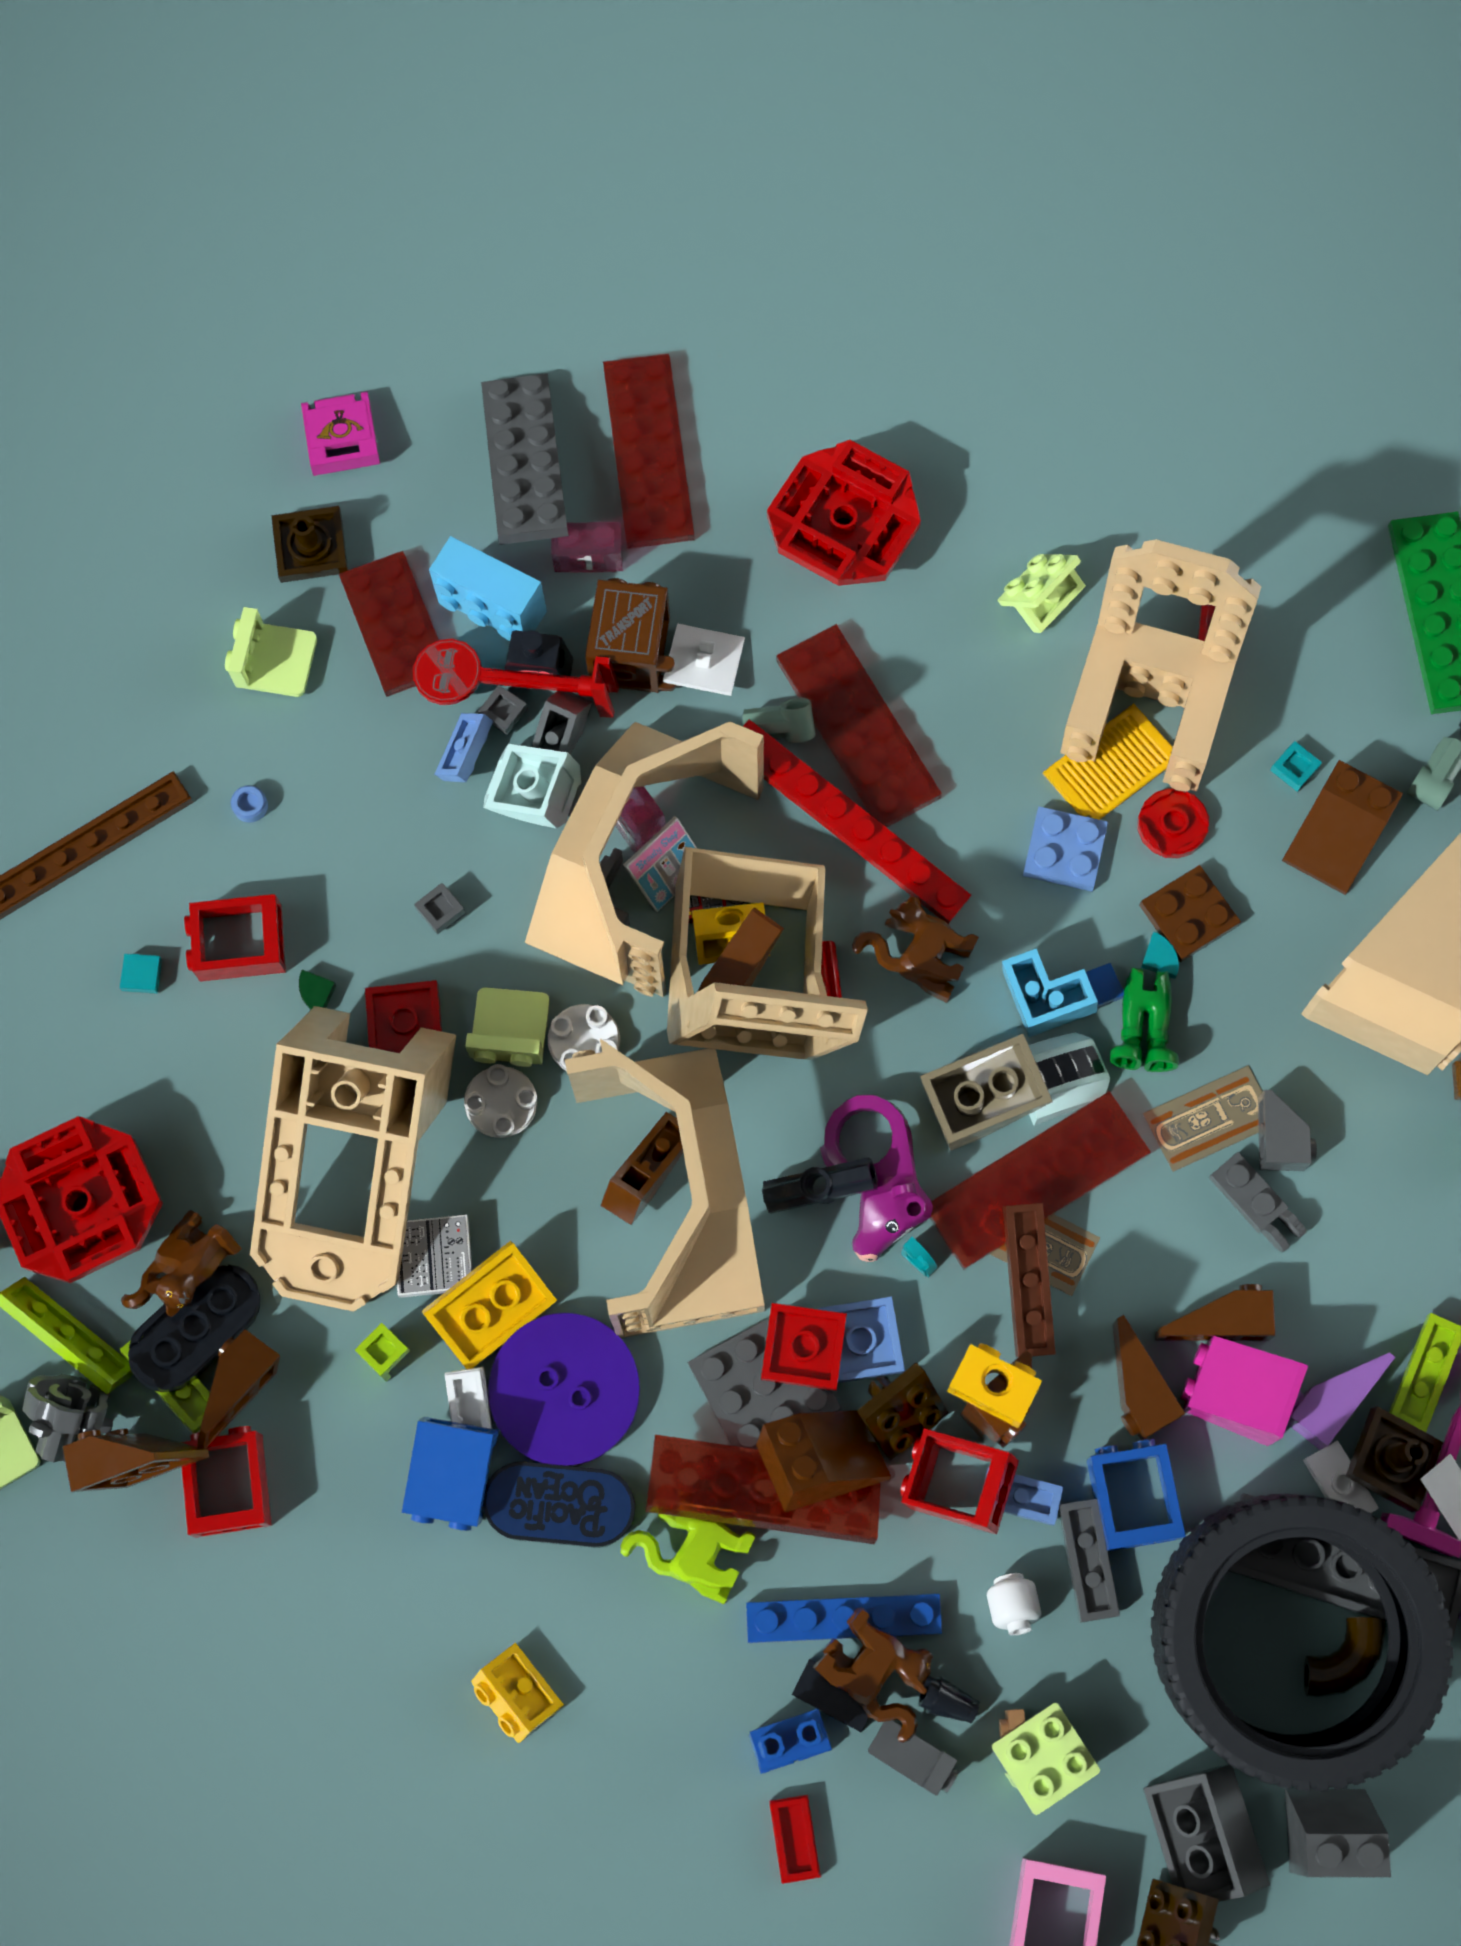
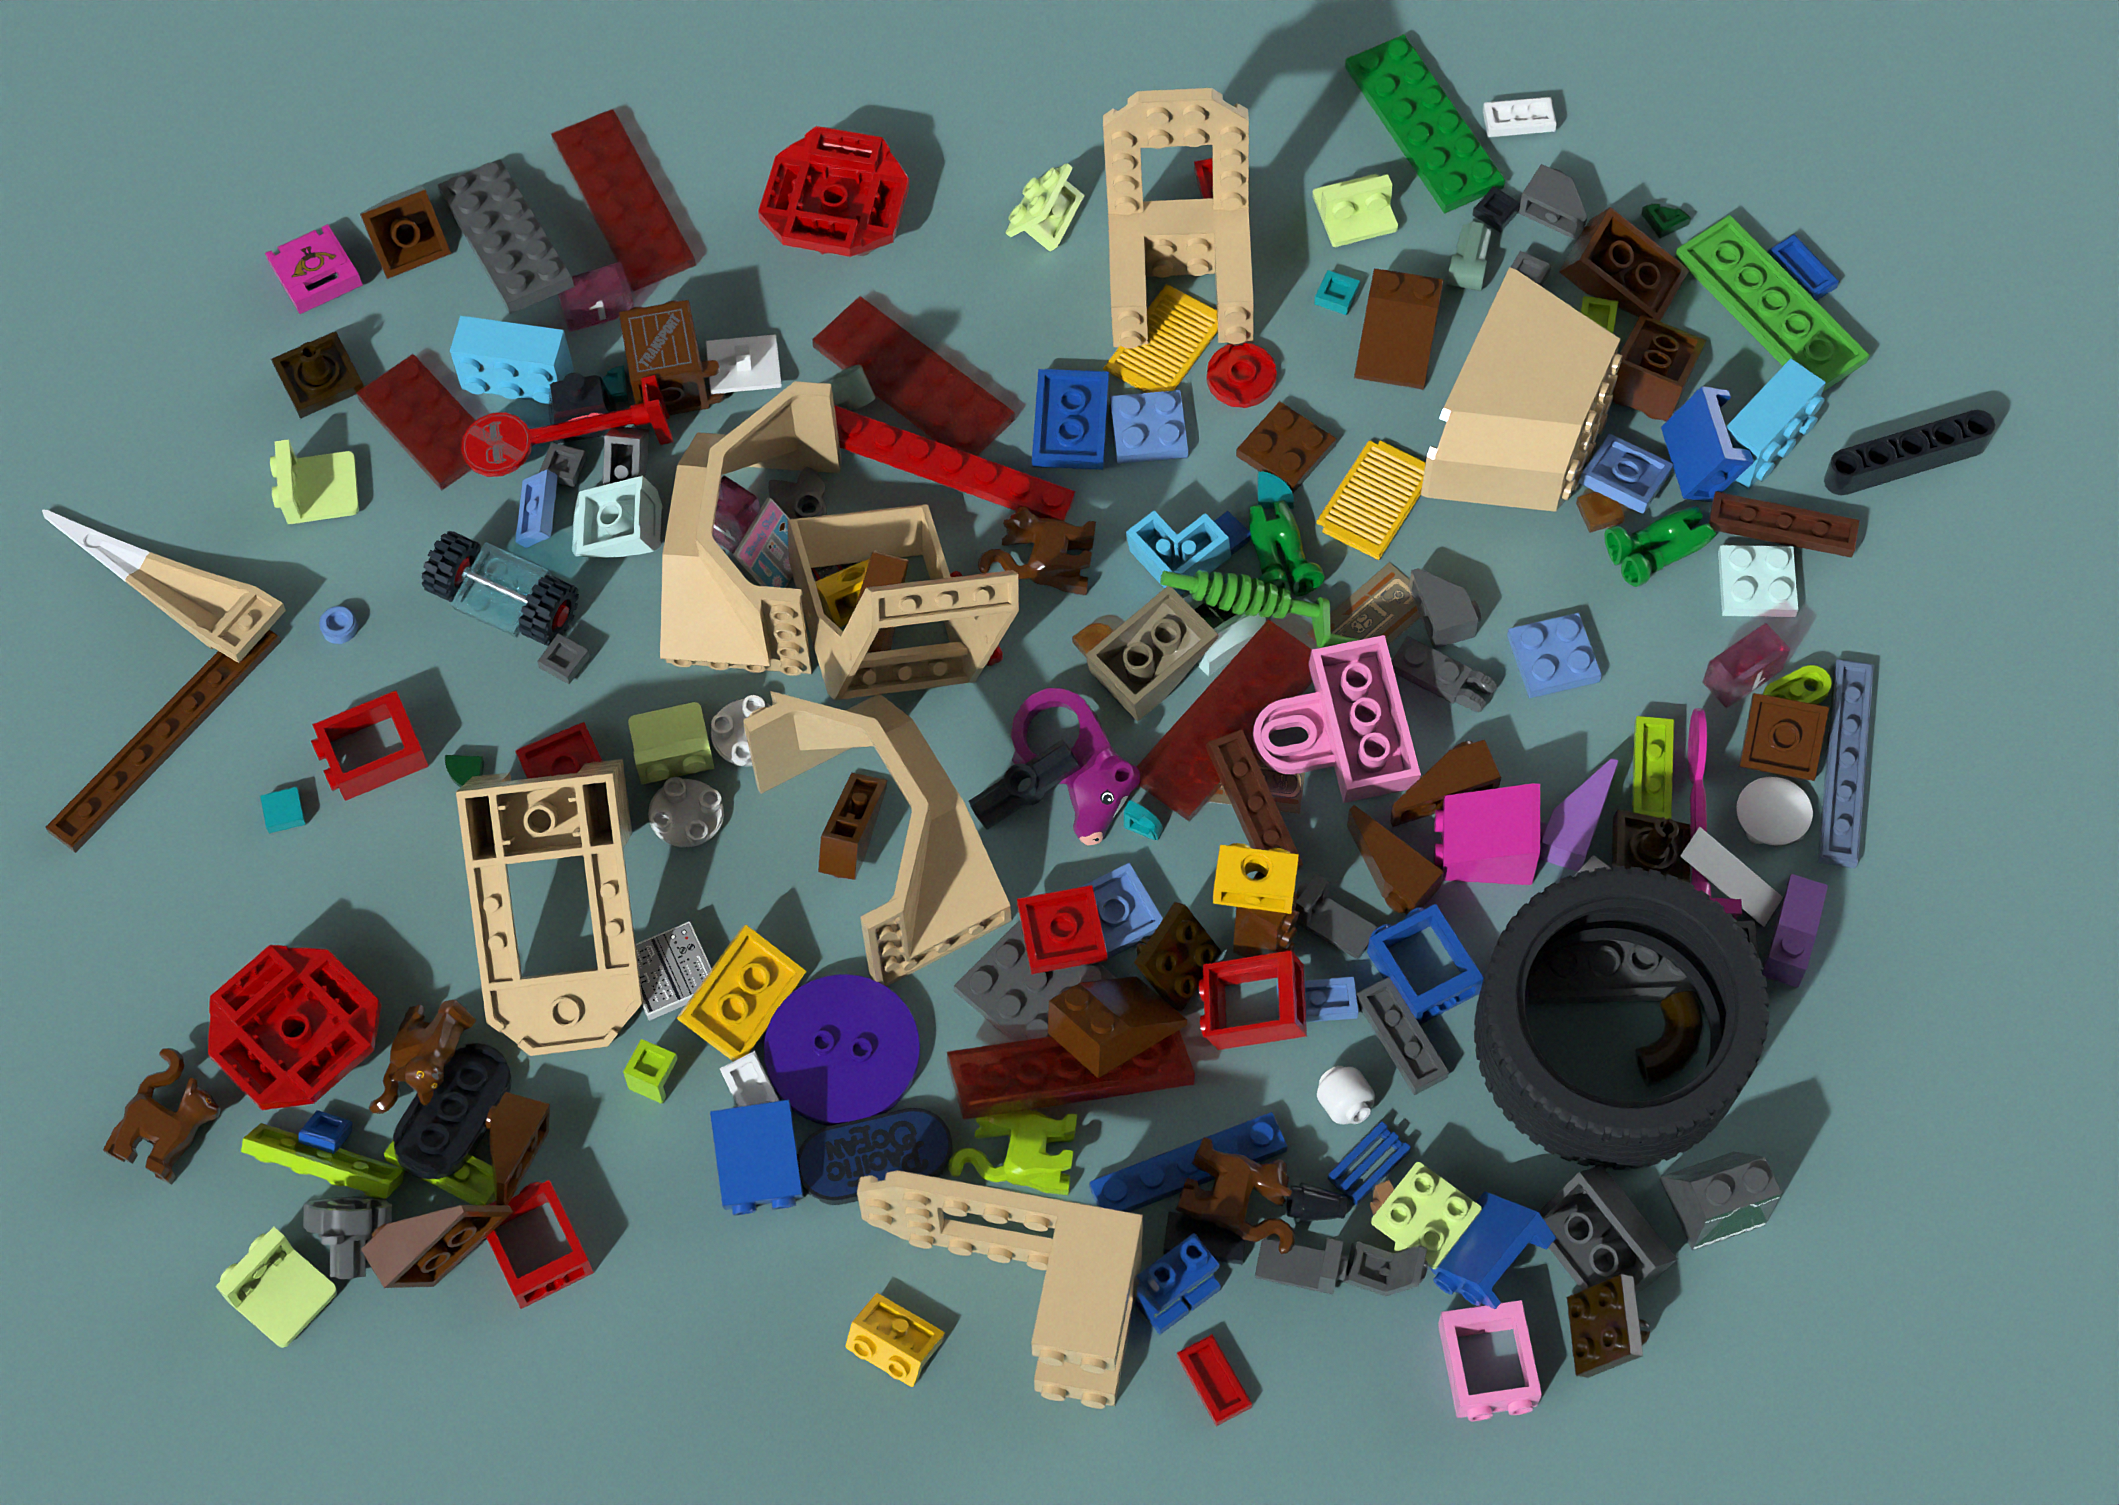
camera: 20 degrees left, 10 degrees down
(77, 1307) = (325, 1132): none -> blue tile
(140, 752) = (209, 606): none -> tan plate
(402, 821) = (499, 588): none -> plate
(434, 422) = (405, 232): none -> reddish brown slope
(577, 640) = (616, 383): none -> teal tile
(697, 1729) = (1087, 1265): none -> tan bracket
(705, 813) = (800, 496): none -> dark grey plate
(937, 1053) = (1090, 637): none -> clear orange tile
(991, 1795) = (1385, 1271): none -> dark grey bracket
(992, 818) = (1070, 419): none -> blue plate
(1042, 1661) = (1390, 1140): none -> blue tile
(1065, 1421) = (1331, 919): none -> dark grey bracket
(1095, 1815) = (1490, 1248): none -> blue panel
(1103, 1069) = (1254, 597): none -> bright green piece
(1149, 1229) = (1350, 723): none -> bright pink brick
(1258, 994) = (1374, 498): none -> yellow window
(1345, 684) = (1356, 209): none -> yellowish green bracket
(1373, 1218) = (1554, 655): none -> medium blue plate

